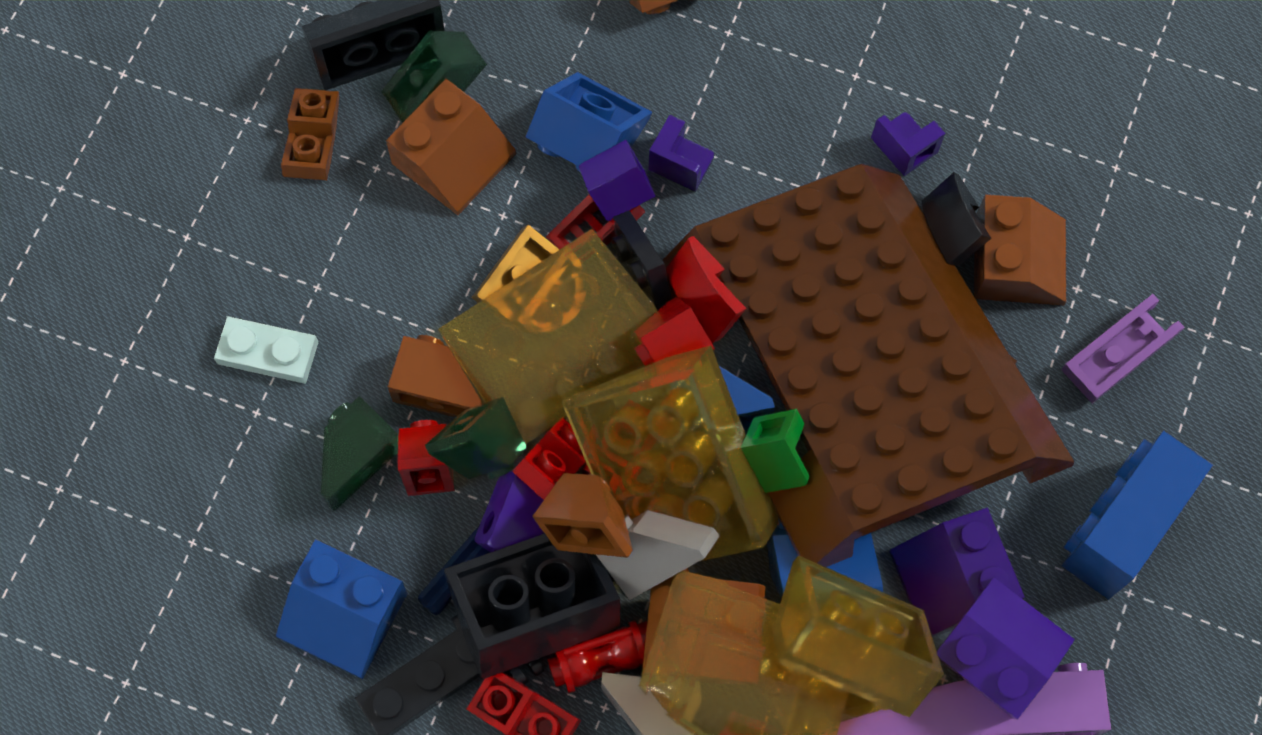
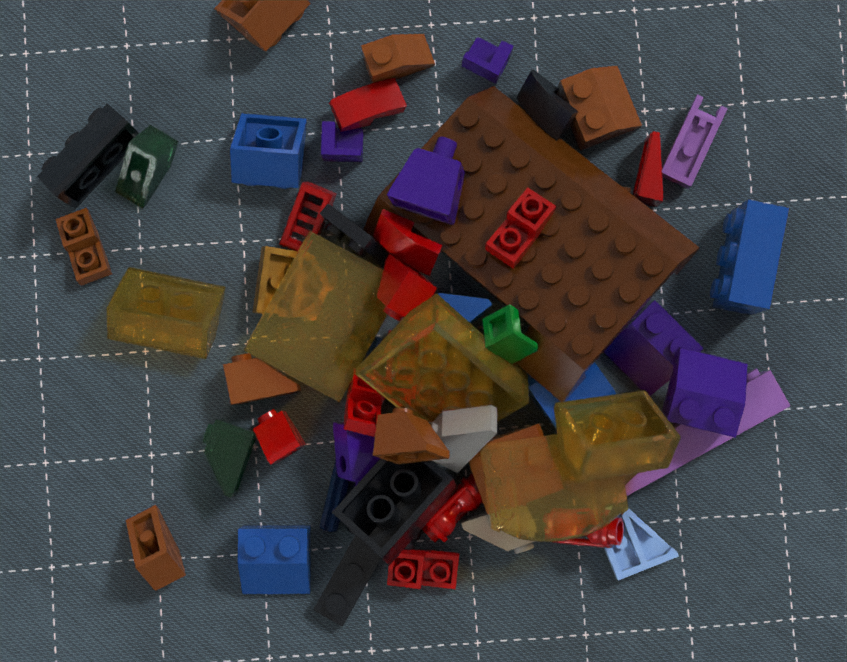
camera: 25 degrees left, 15 degrees up
(198, 523) = (154, 548): none -> dark orange slope
(266, 350) = (135, 411): light aqua plate -> none
(365, 250) = (165, 312): none -> clear yellow slope
(450, 147) = (184, 212): dark orange slope -> none
(479, 441) = (311, 416): clear green slope -> none
(616, 180) = (309, 187): dark purple panel -> none
(729, 122) = (367, 103): none -> red slope
(766, 230) = (430, 183): none -> dark purple torso
(795, 88) = (396, 56): none -> dark orange slope
(855, 329) = (521, 228): none -> red slope
(1047, 365) = (649, 179): none -> red slope

